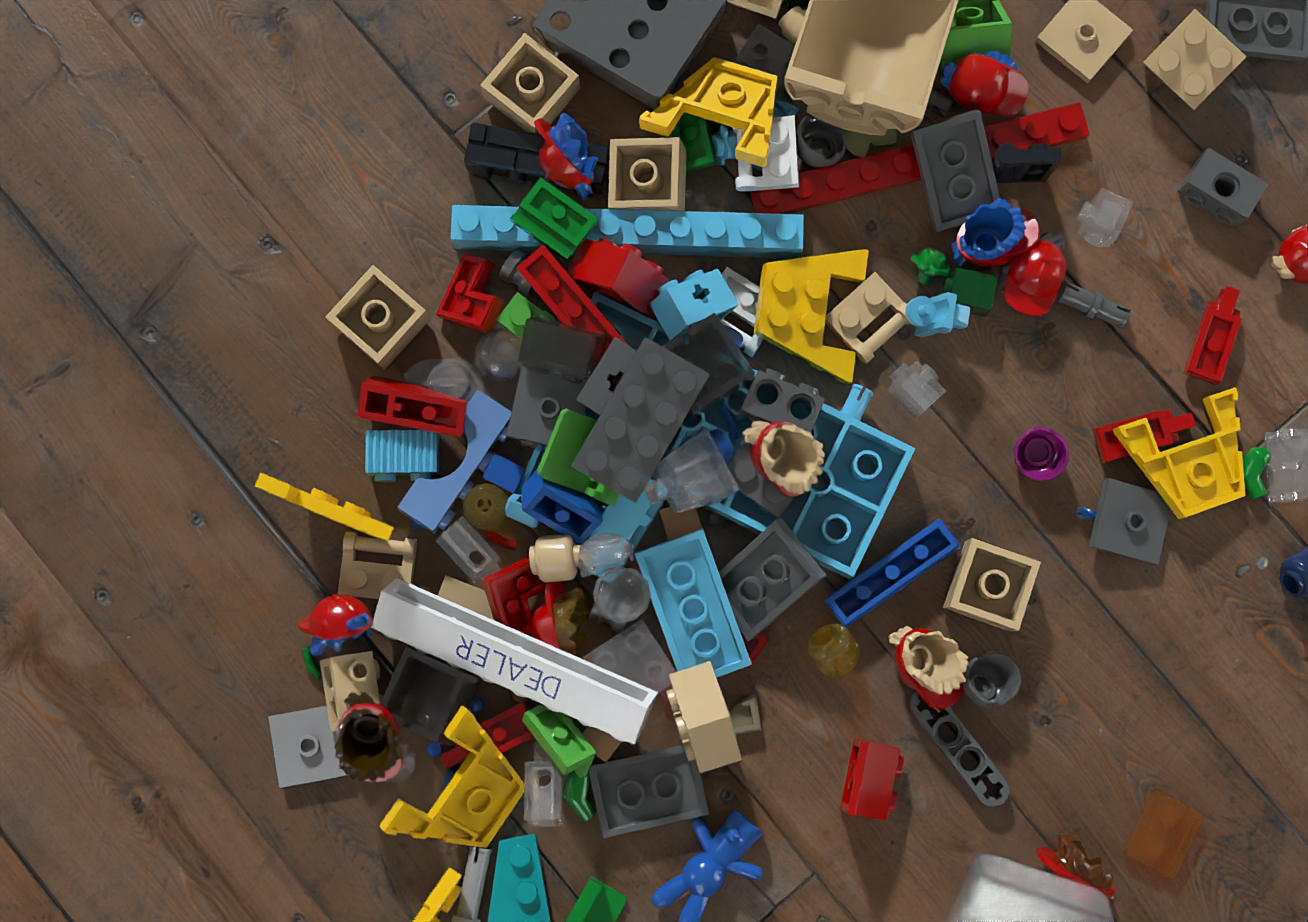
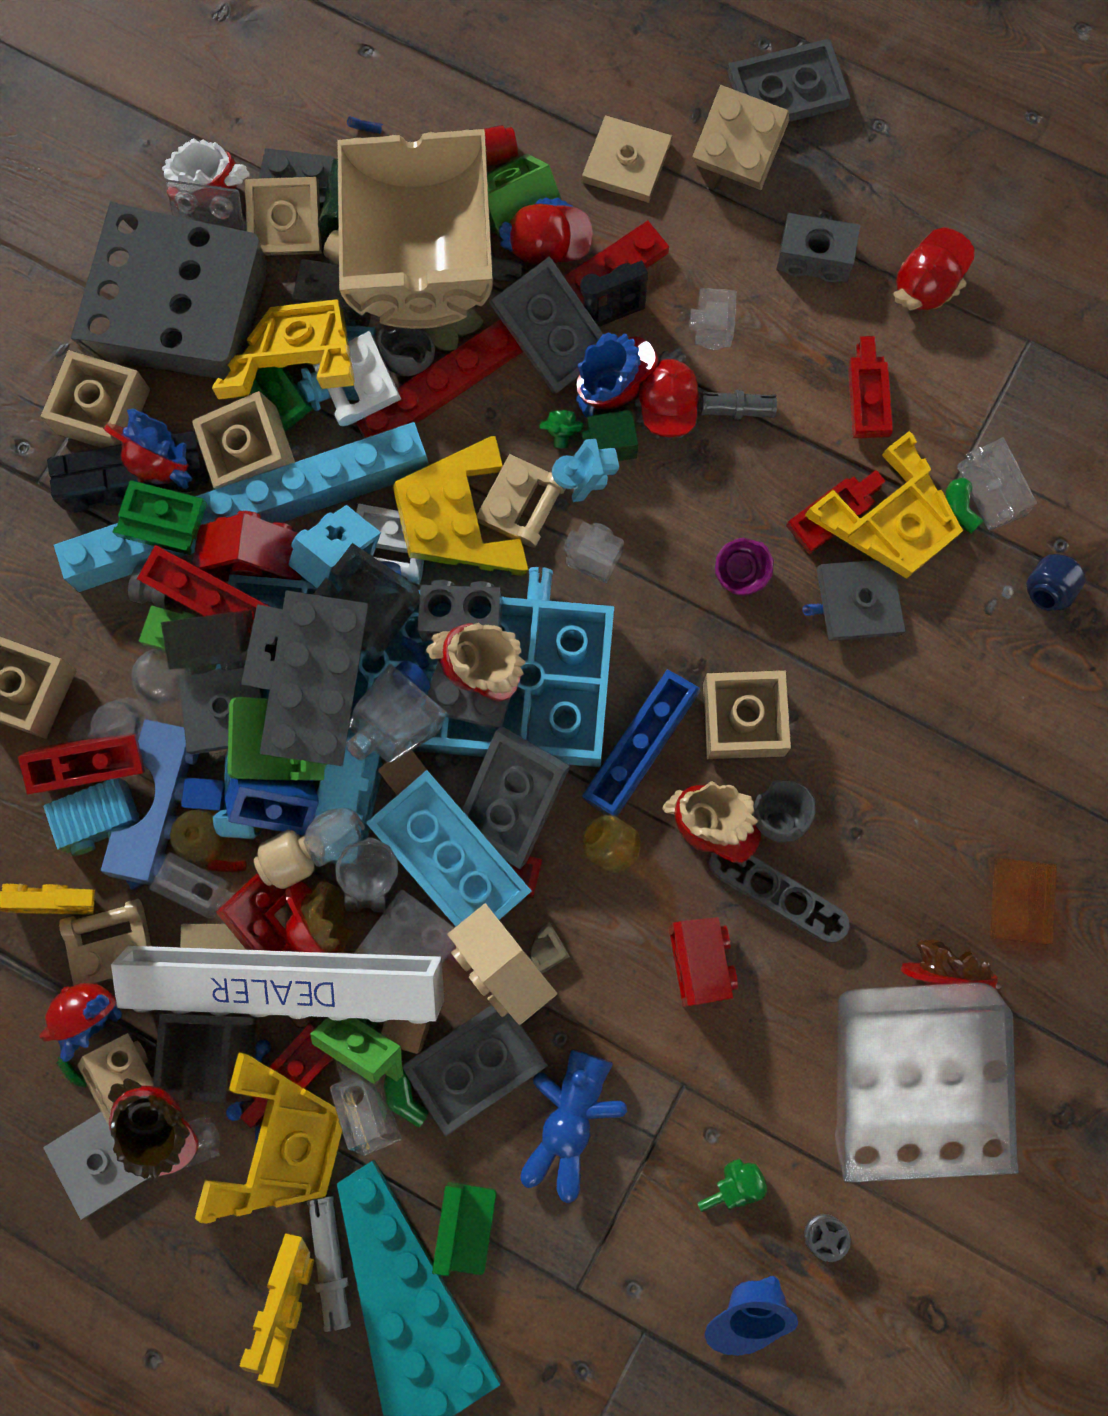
camera: 15 degrees left, 5 degrees down
(464, 300) = (104, 636): red tile -> none

